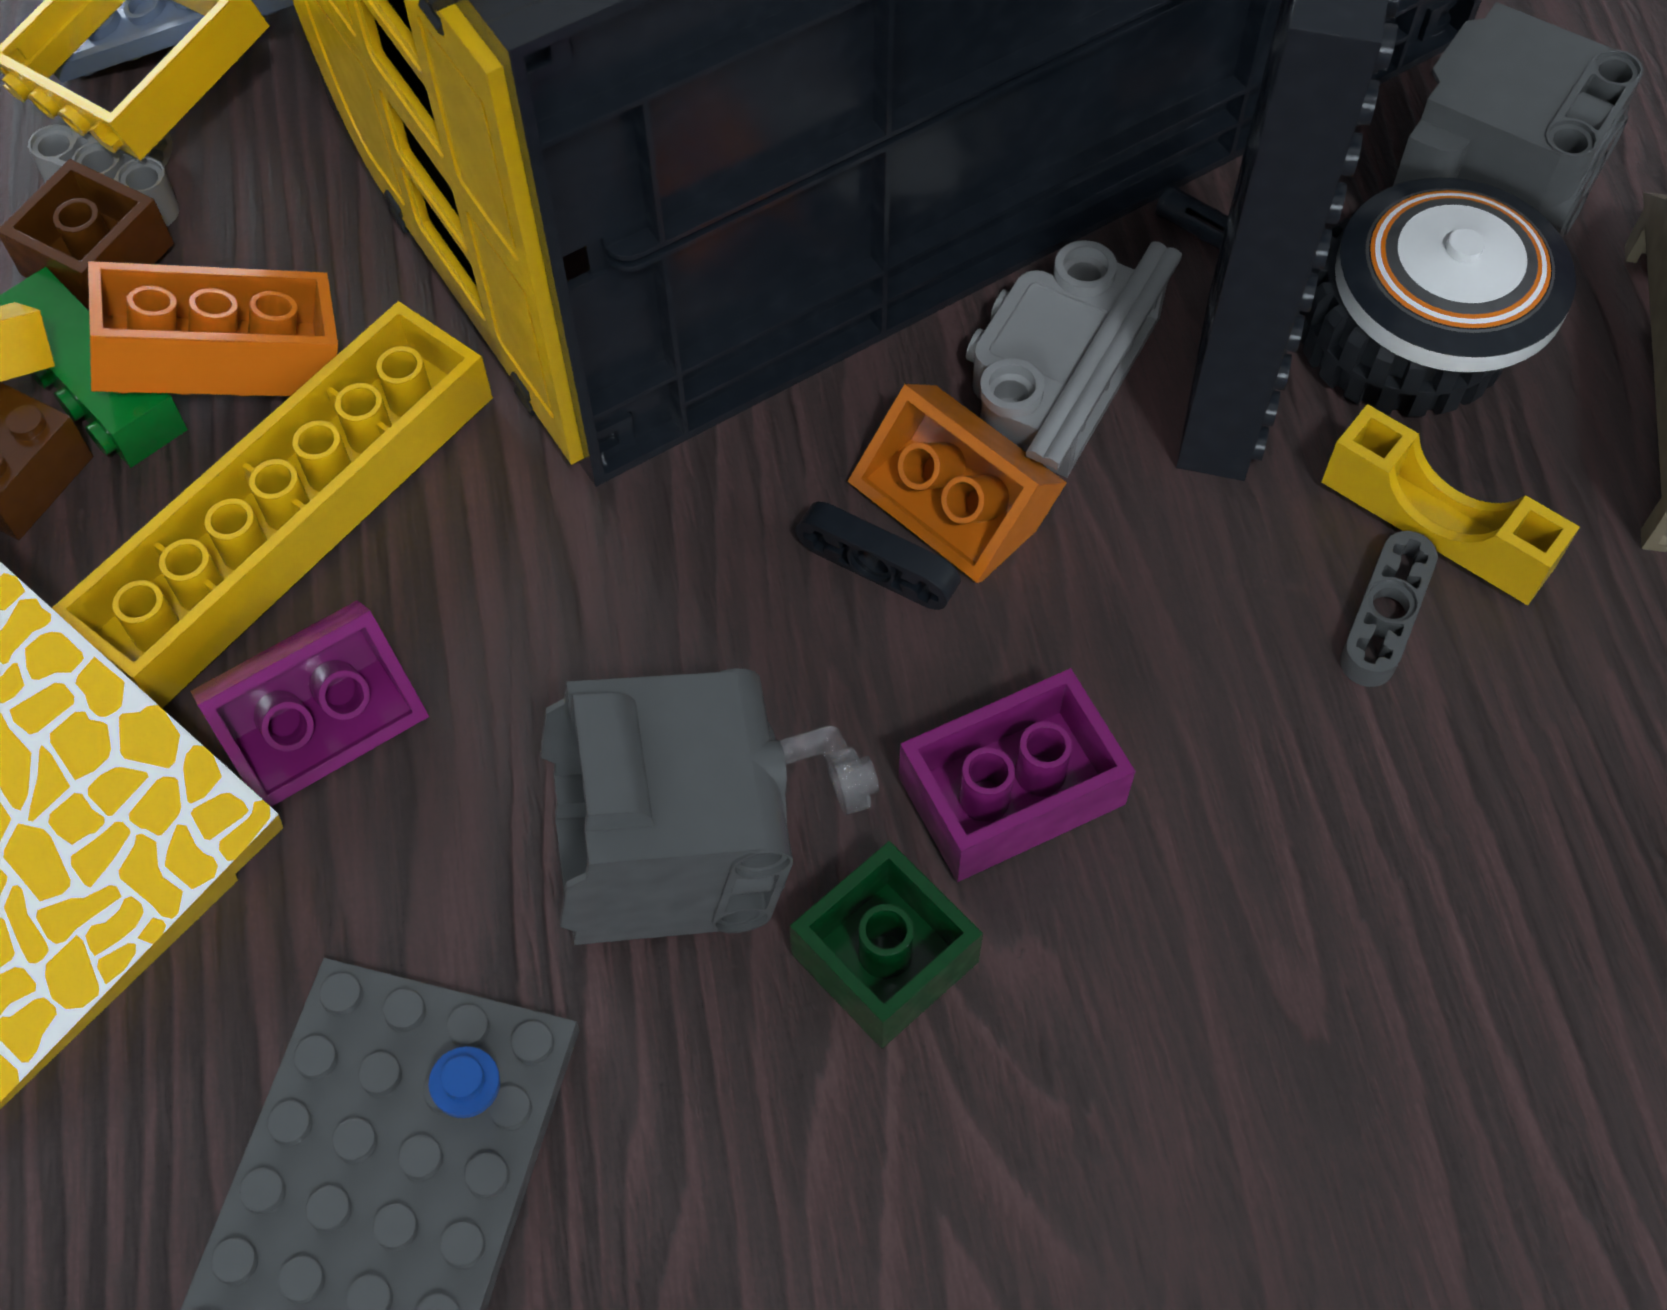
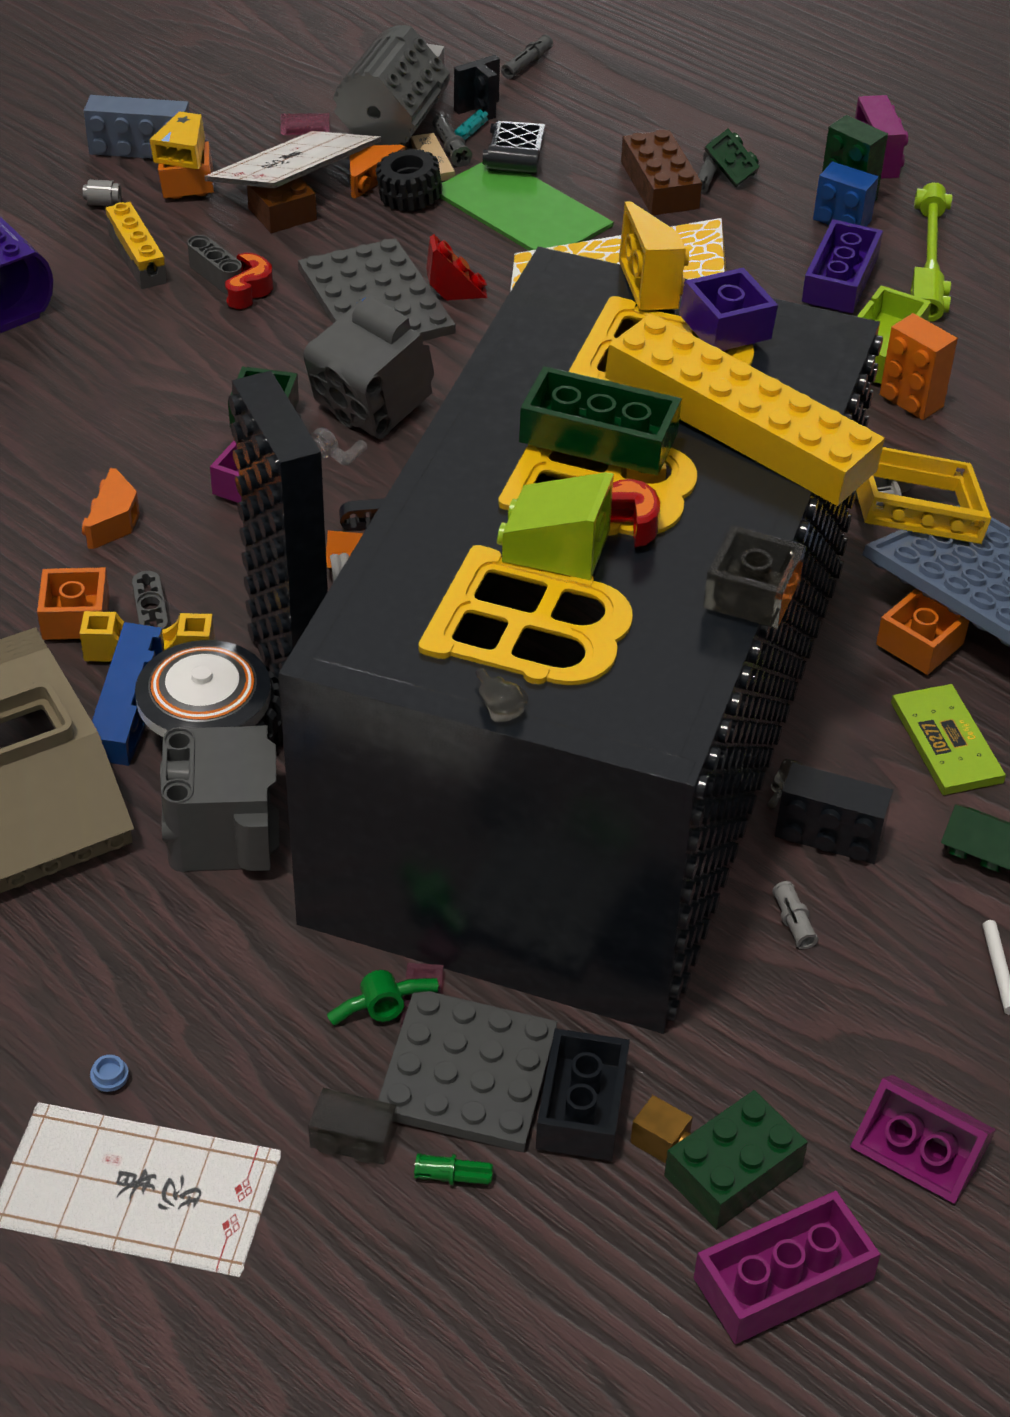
camera: 140 degrees right, 15 degrees down
(196, 1088) = (451, 274): none -> red slope
(1345, 851) = (112, 512): none -> orange slope
(1537, 418) = (117, 711): none -> blue wedge
(1540, 645) = (65, 597): none -> orange brick

